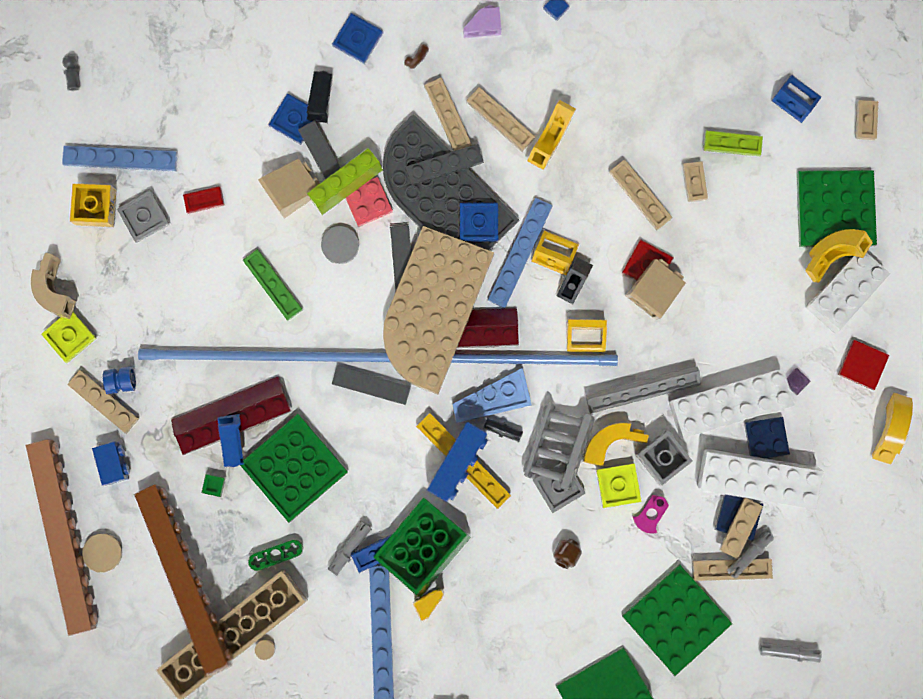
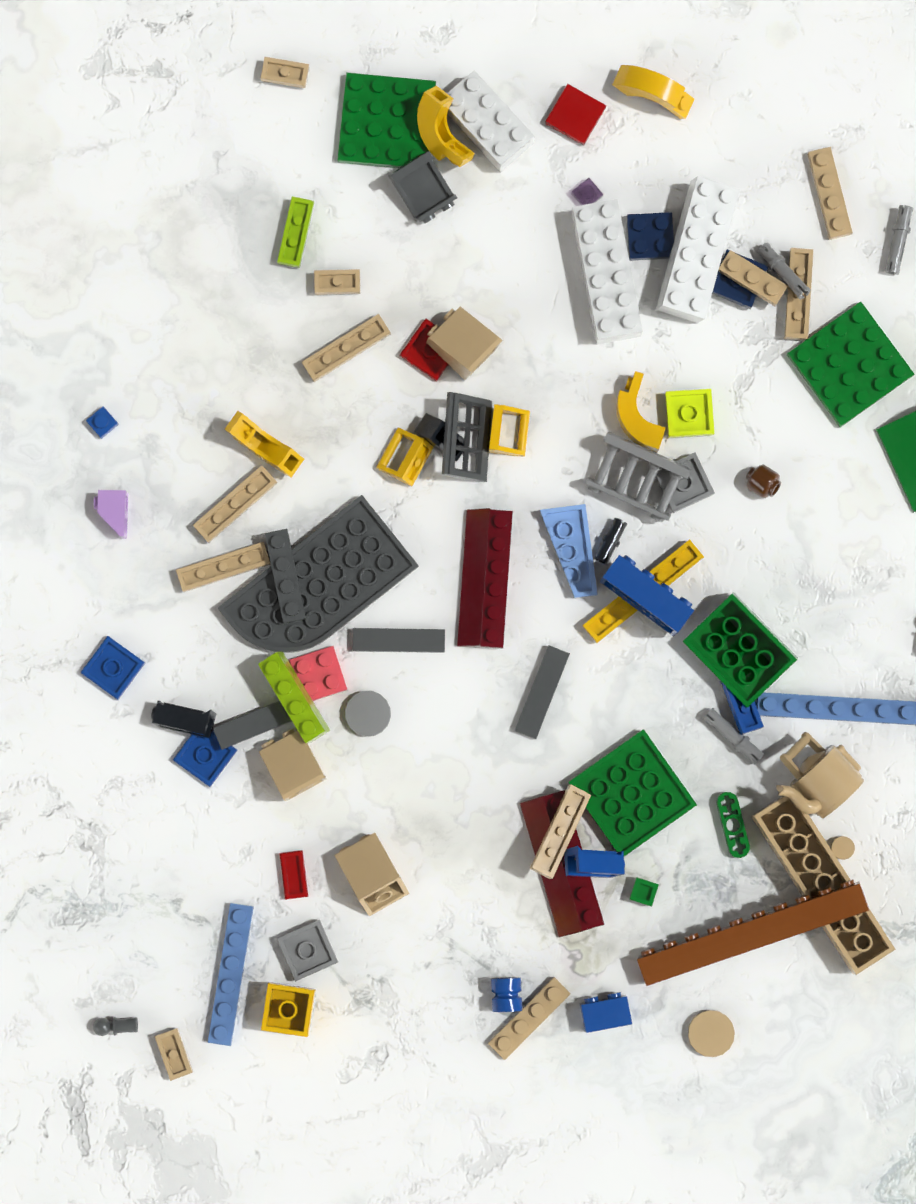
camera: 90 degrees left, 0 degrees up
(44, 291) = (390, 1077): tan arch -> none
(52, 120) = (173, 1054): none -> tan plate
(61, 536) = (688, 1080): nougat brick -> none
(68, 337) = (445, 1053): neon yellow plate -> none
(155, 354) = (478, 948): medium blue piece -> none
(208, 260) = (371, 874): none -> tan slope
(253, 409) = (560, 831): none -> tan plate
(272, 285) = (407, 799): bright green tile -> none
(318, 627) = (823, 778): none -> tan piece
(418, 58) = (147, 595): reddish brown arm -> none
(426, 604) = (806, 647): yellow tile -> none
(433, 307) = (458, 605): tan plate -> none
(479, 222) = (360, 542): blue tile -> none
(520, 253) = (400, 498): medium blue plate -> none
(569, 285) = (450, 436): none -> dark grey piece
(643, 389) = (580, 371): light grey plate -> none
(645, 524) = (732, 391): dark pink piece -> none
(664, 458) = (663, 356): light grey brick -> none
(783, 243) = (423, 188): none -> dark grey panel
(793, 103) = (255, 156): blue tile -> none
(823, 588) = (830, 193): none -> tan plate

